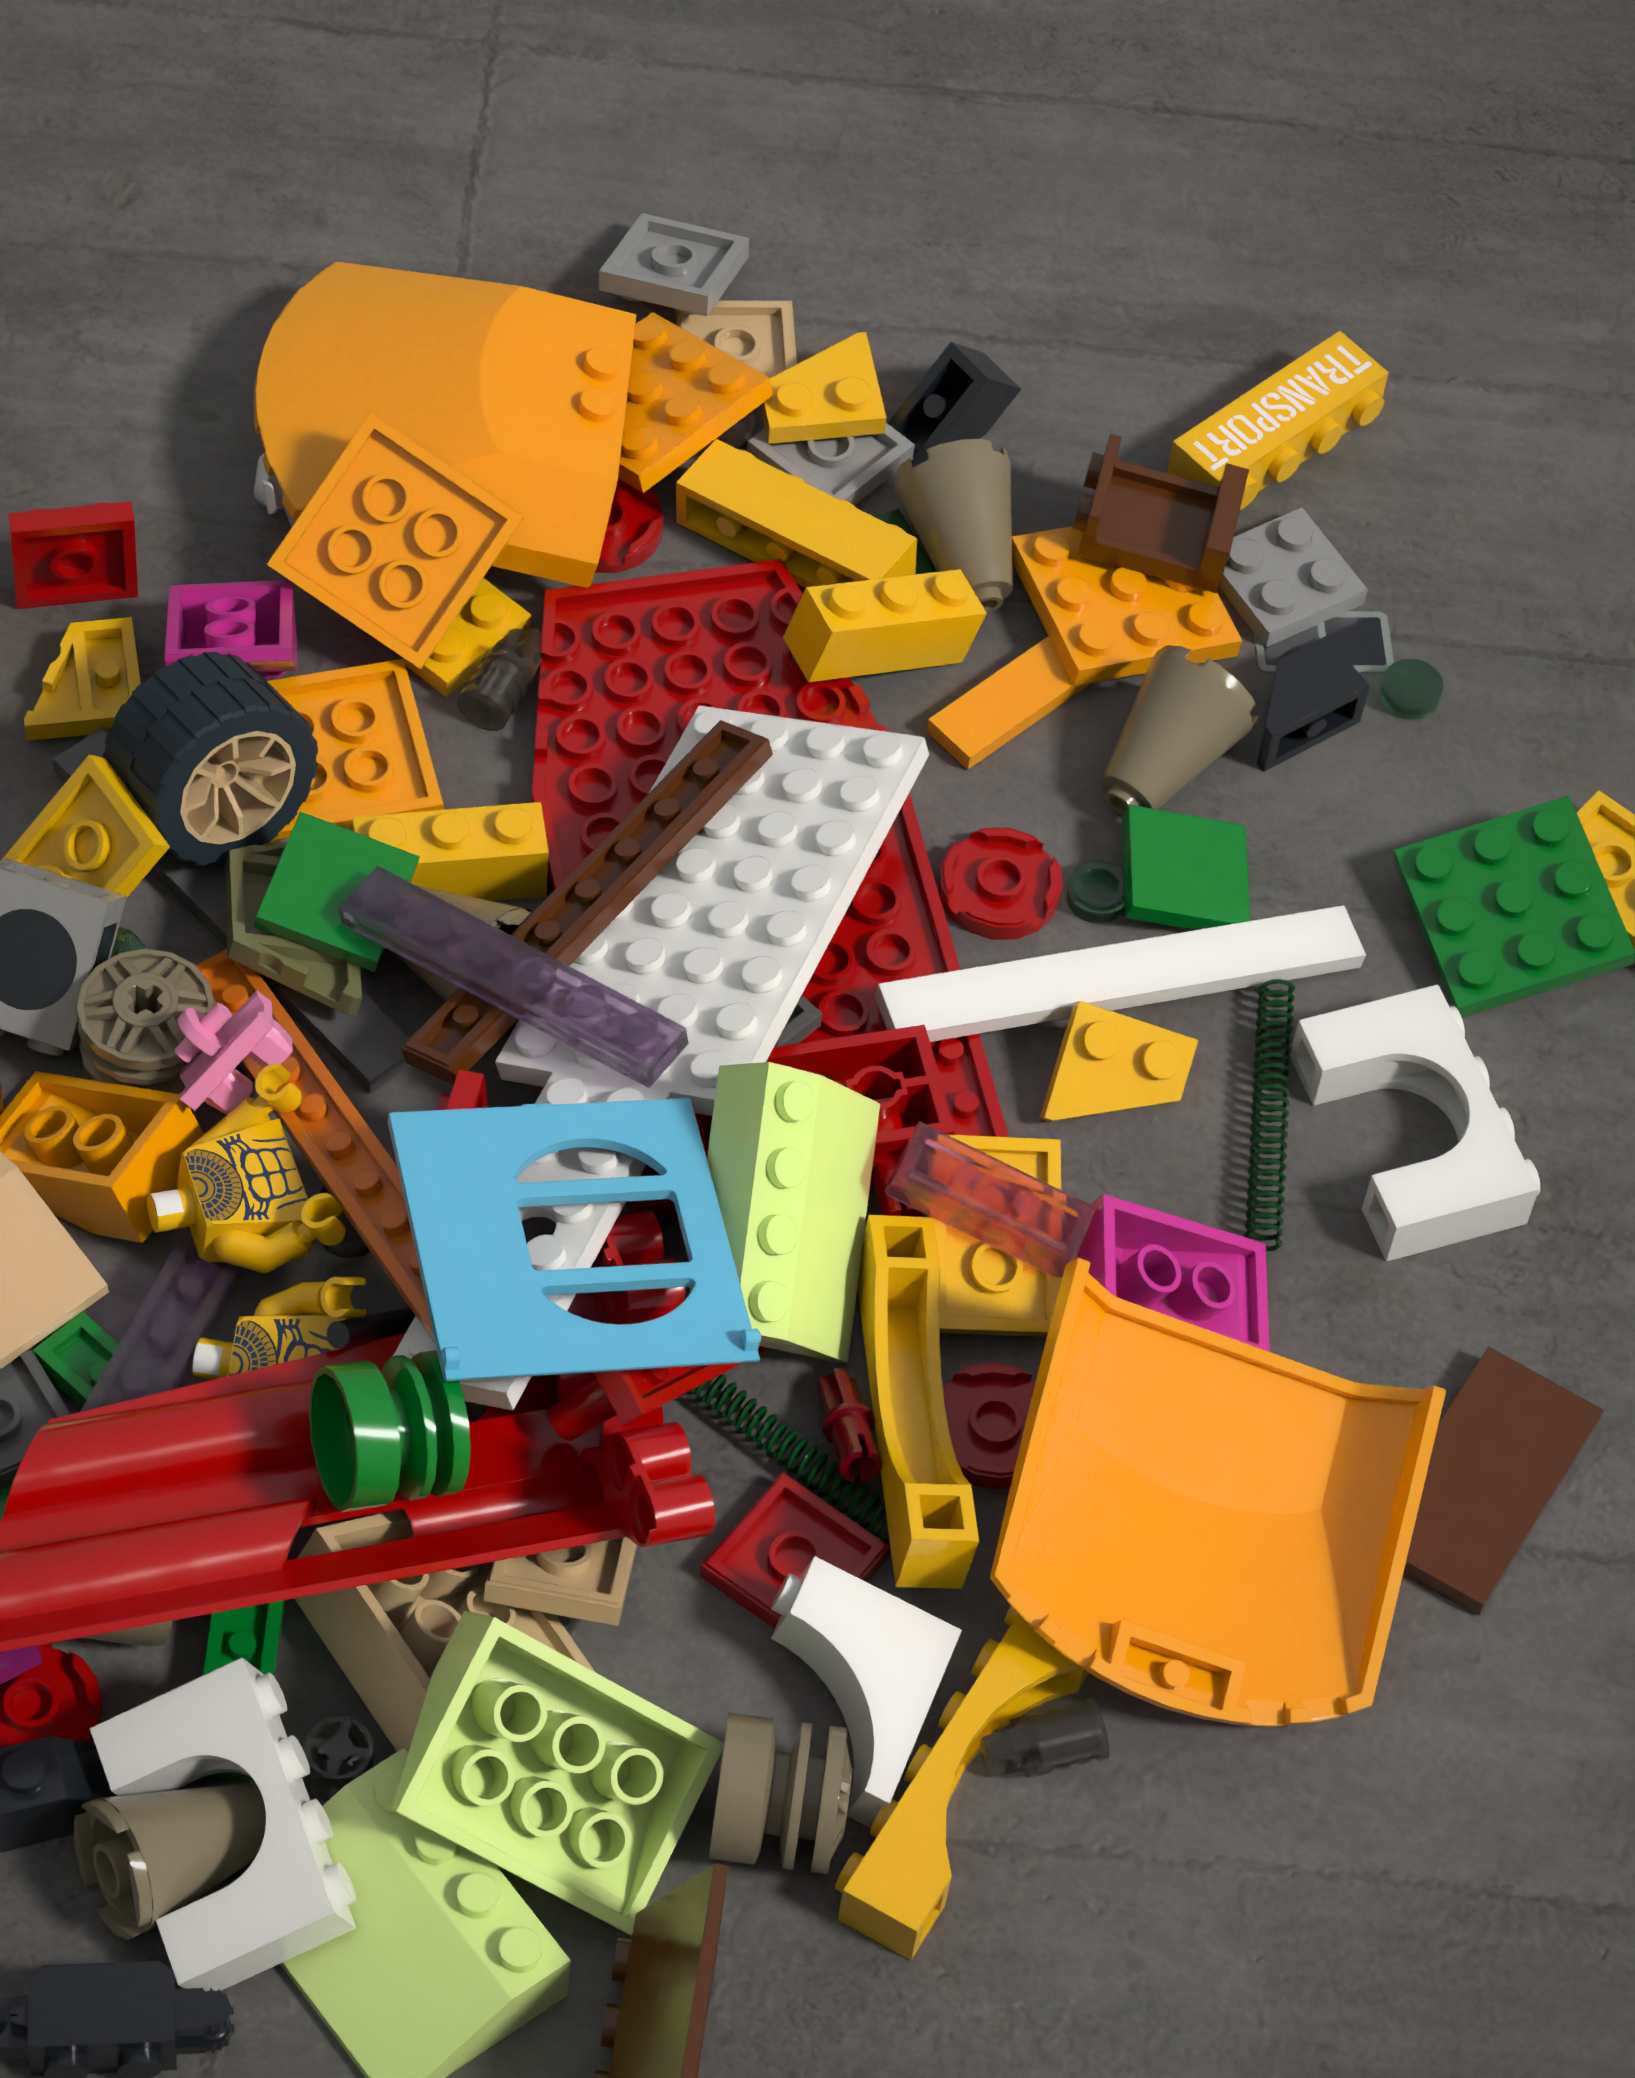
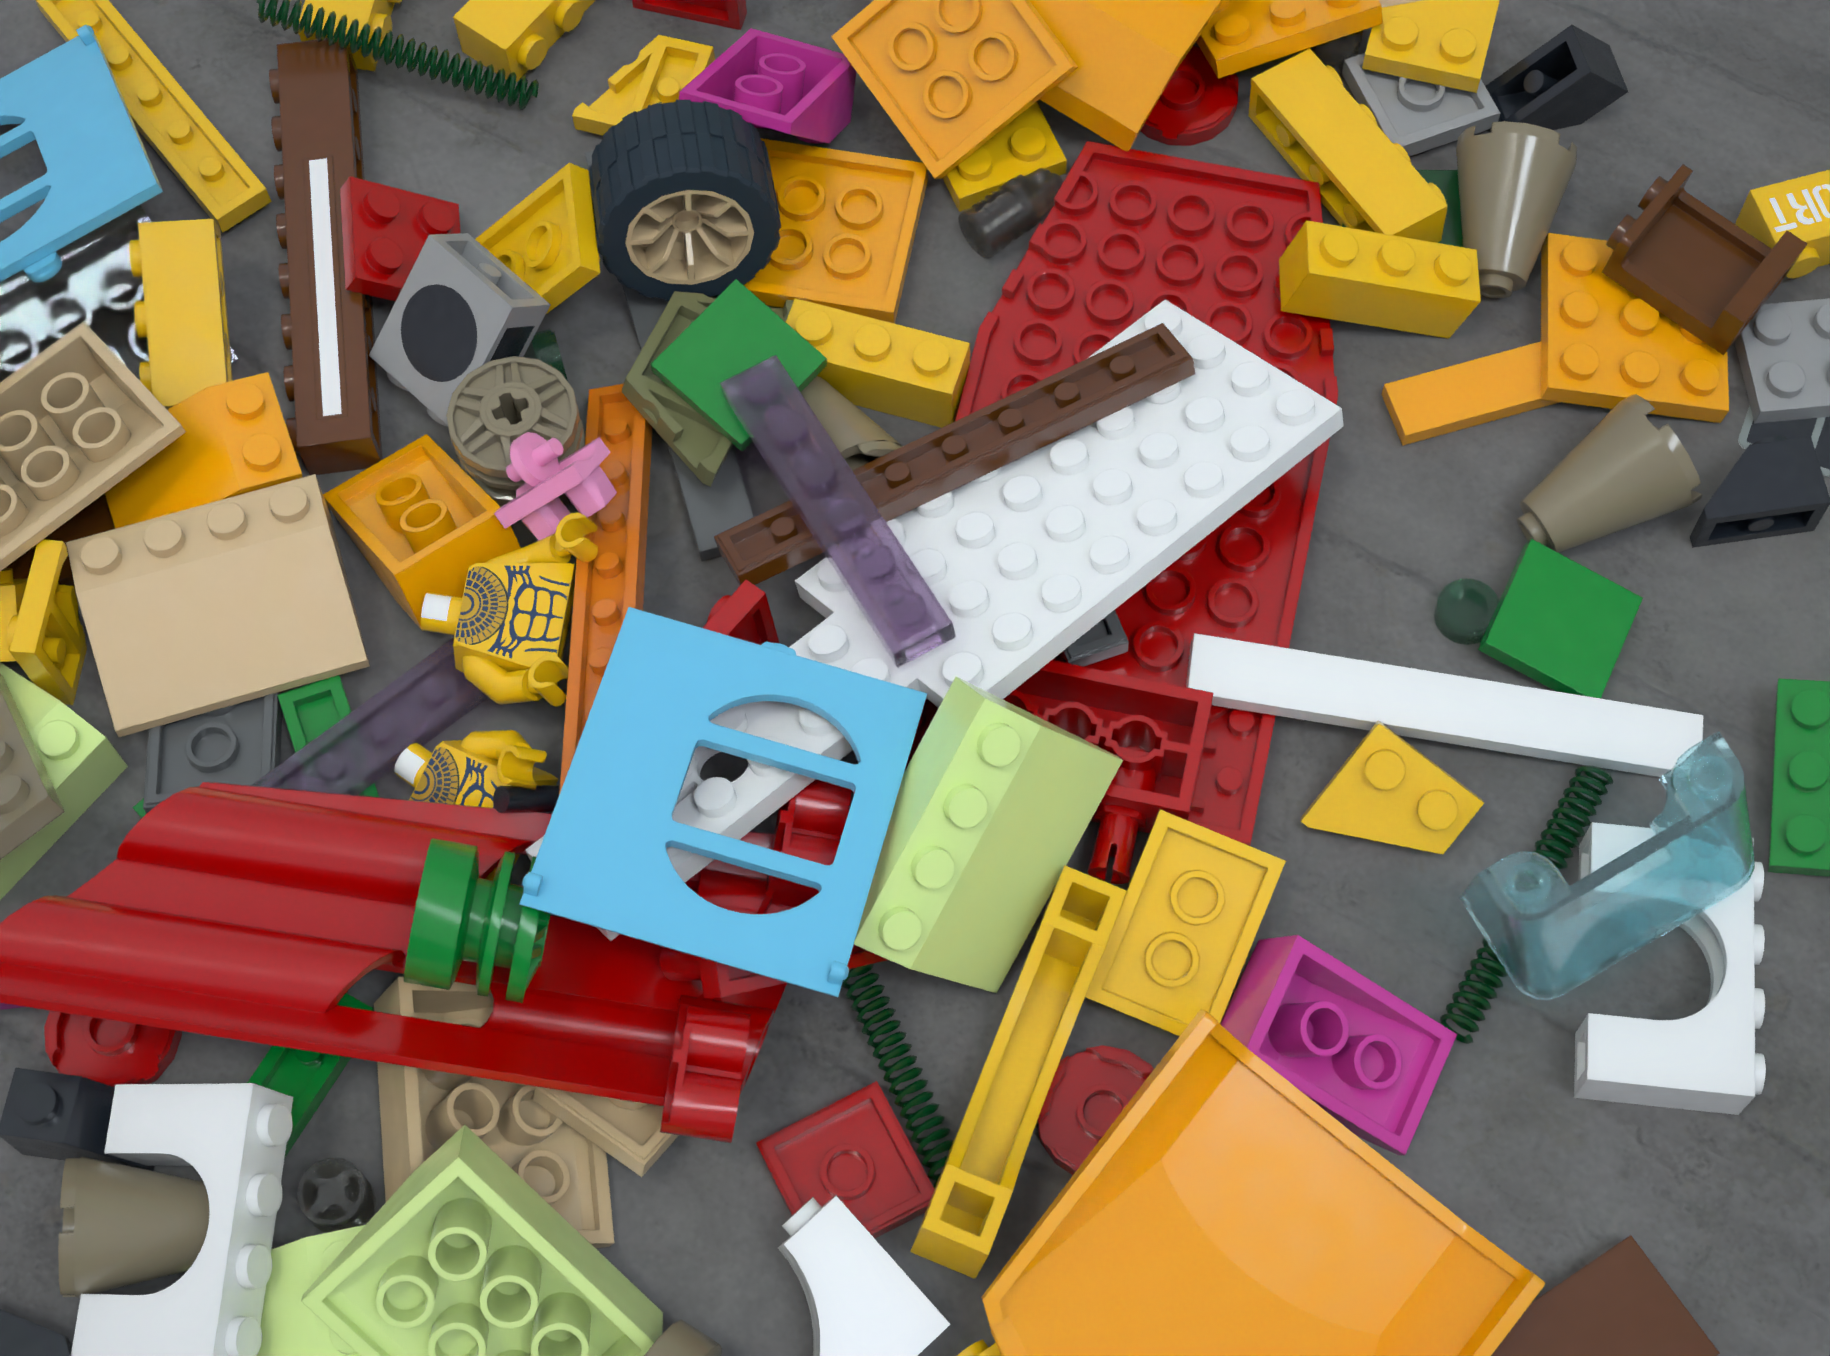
camera: 35 degrees right, 10 degrees up
(849, 1426) = (956, 1062): dark red axle -> none
(990, 1200) = (1186, 897): slope -> none
(1000, 884) = (1376, 569): red tile -> none
(1317, 1105) = (1566, 934): none -> clear light blue windscreen

